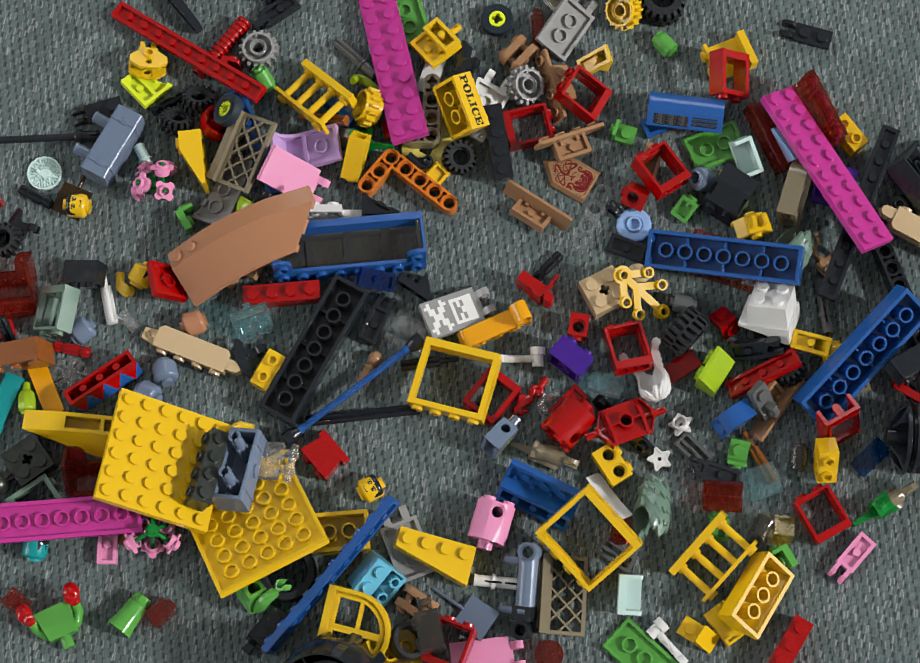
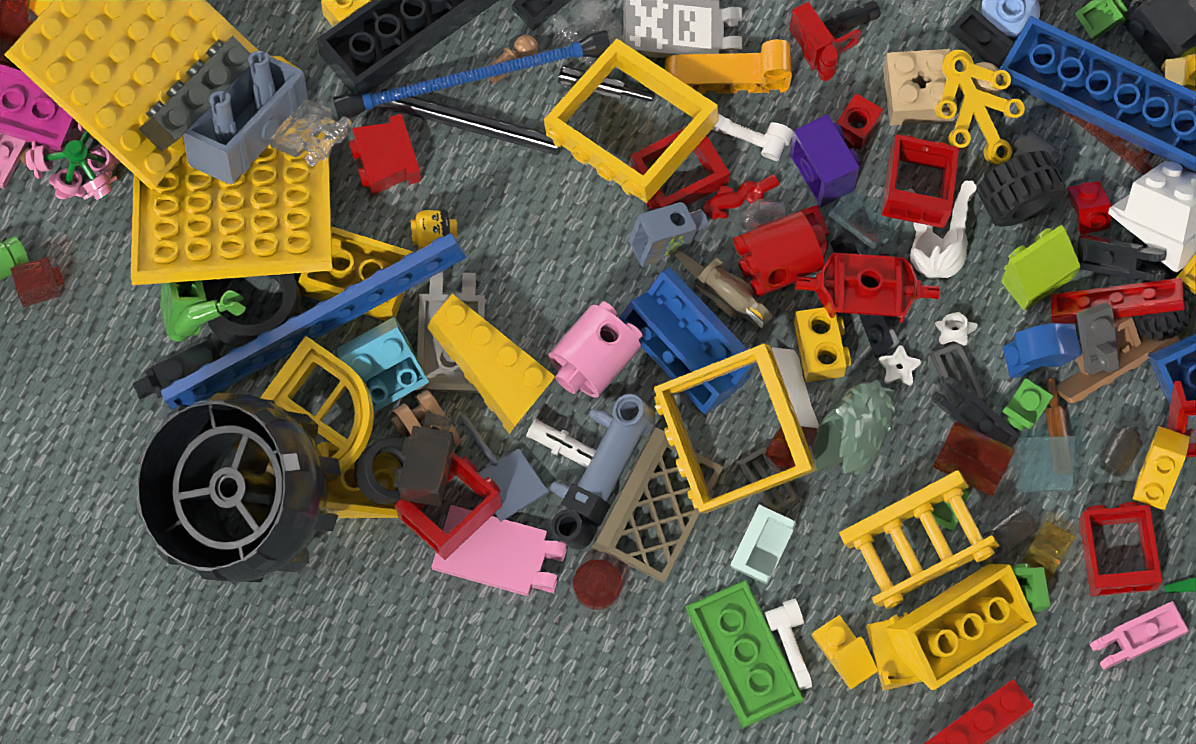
camera: 20 degrees right, 5 degrees down
(682, 366) = (993, 244): red tile -> none

